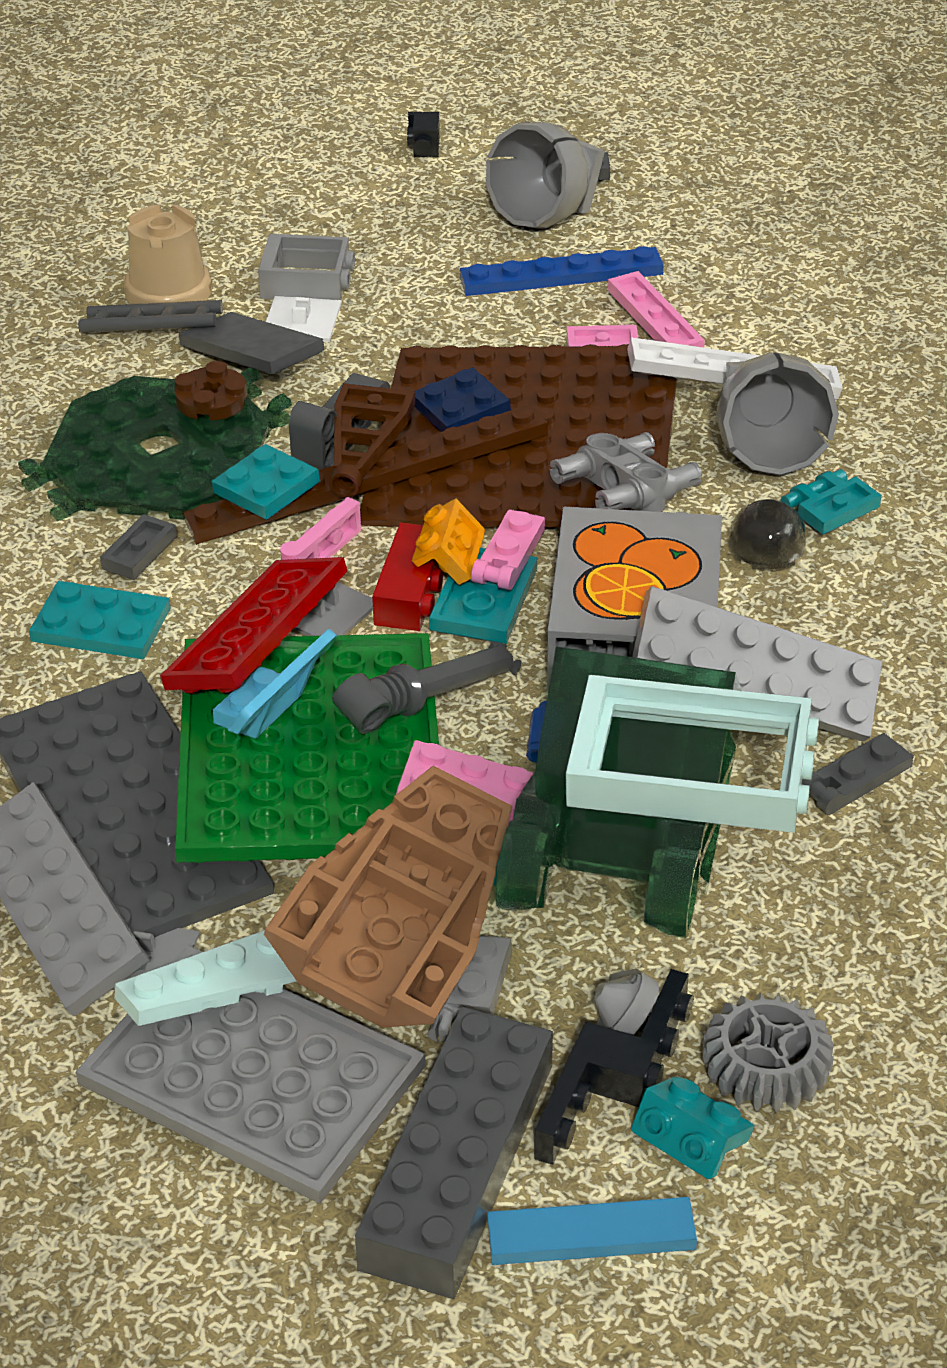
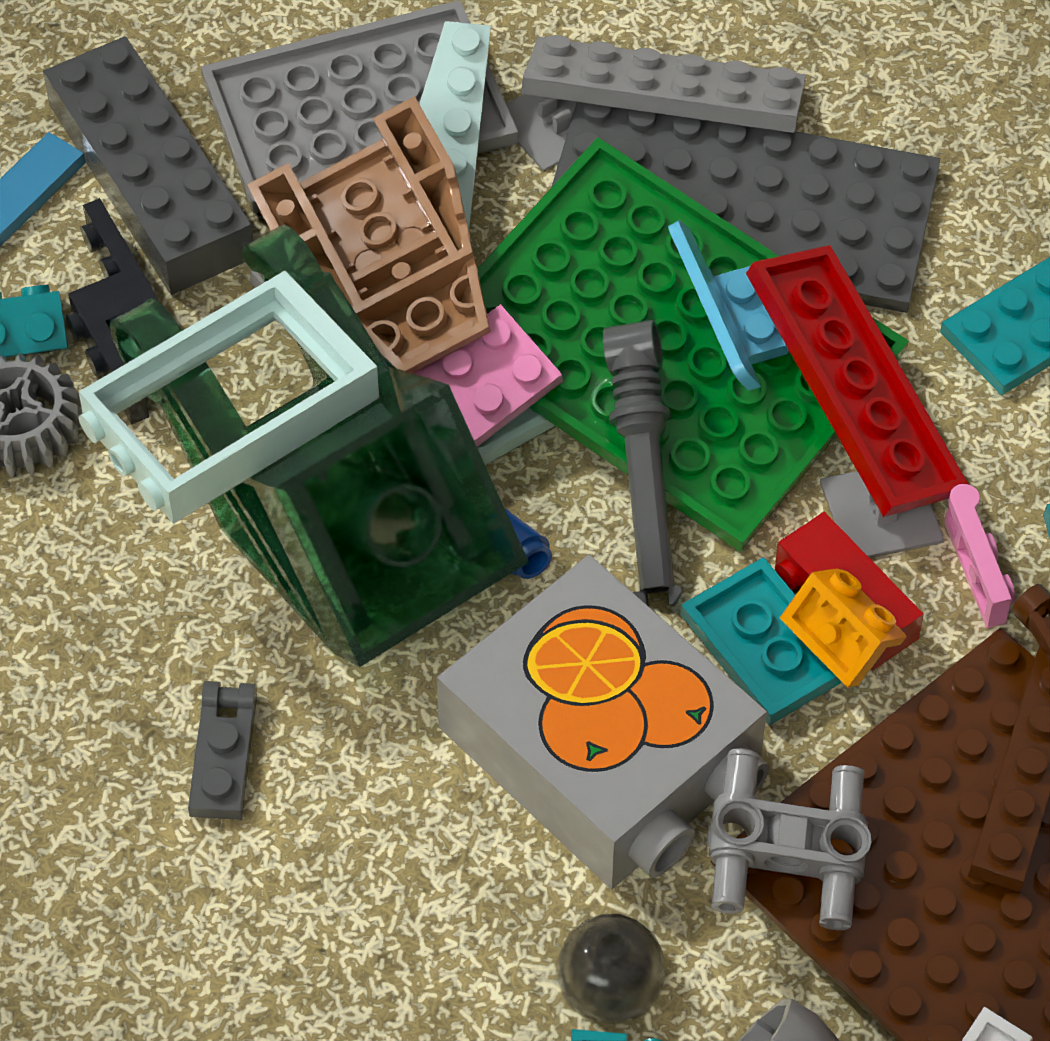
camera: 130 degrees right, 15 degrees up
(509, 549) = (795, 686): bright pink plate -> none
(764, 659) = (384, 707): light grey plate -> none

